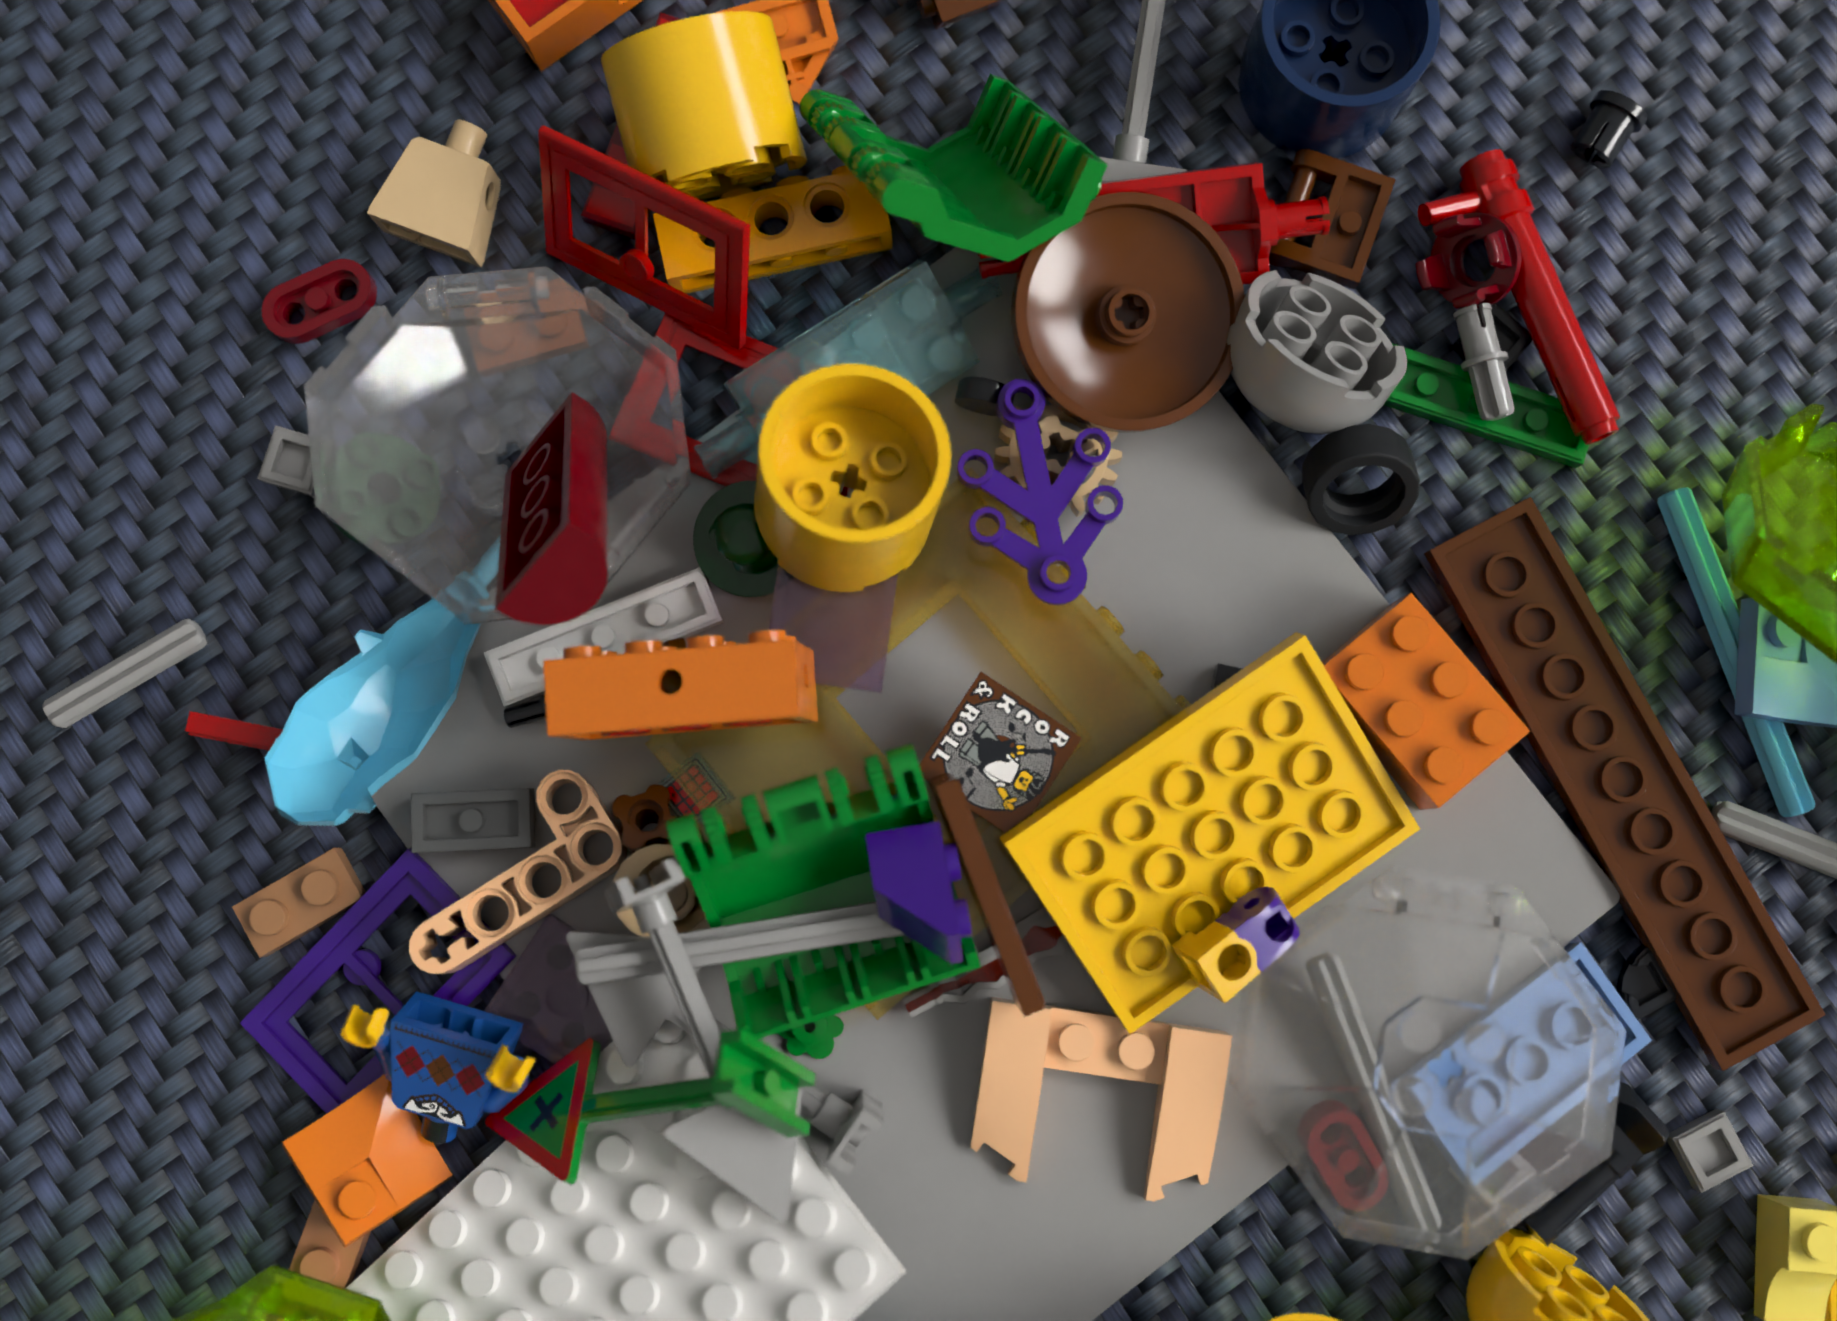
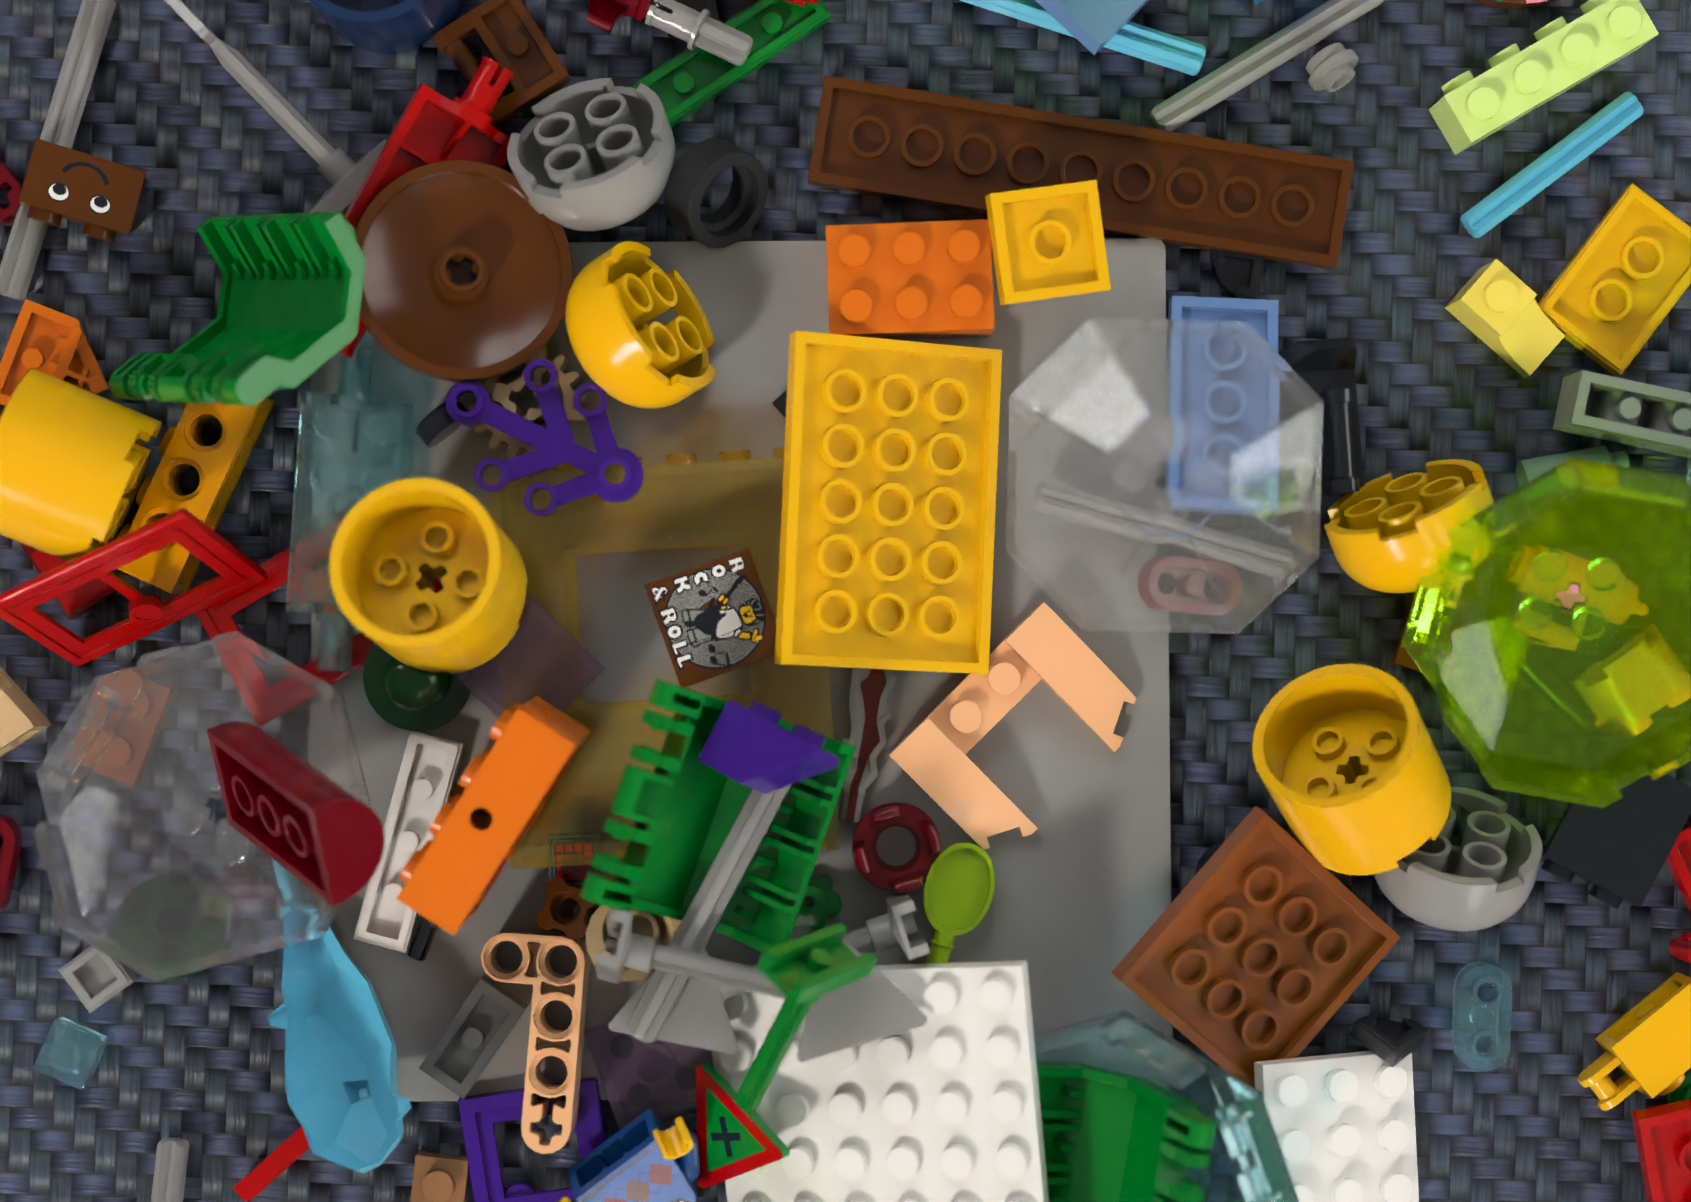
camera: 60 degrees left, 5 degrees up
(212, 489) = (71, 1053): none -> clear light blue plate
(913, 1155) = (957, 895): none -> lime piece
(914, 1102) = (886, 876): none -> dark red piece
(987, 893) = (806, 702): reddish brown tile -> none
(1176, 497) = (611, 336): none -> yellow cylinder
(1238, 943) = (981, 547): leg -> none
(1551, 798) = (1048, 242): none -> yellow tile
(1709, 1150) = (1387, 319): light grey tile -> none

